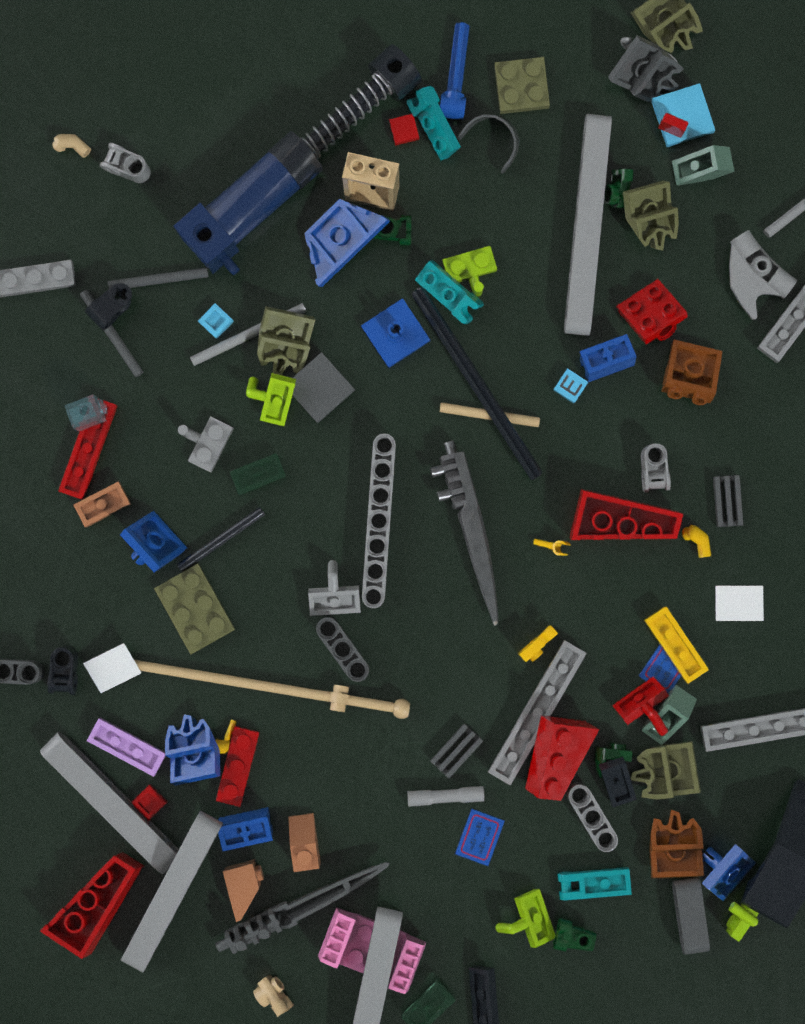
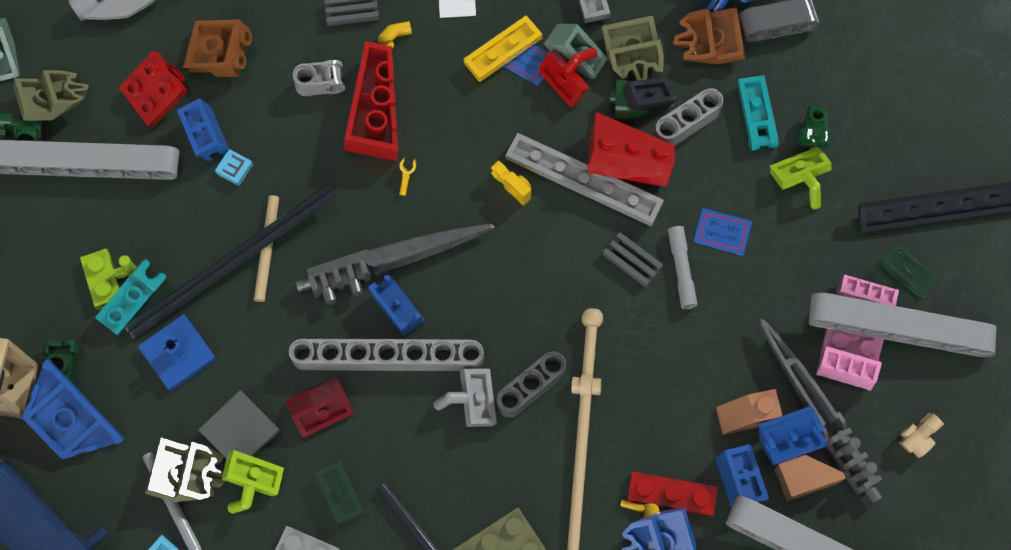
camera: 90 degrees left, 15 degrees down
(276, 878) = (792, 435): none -> blue hinge
(337, 458) = (319, 407): none -> dark red panel
(425, 531) = (396, 306): none -> blue hinge

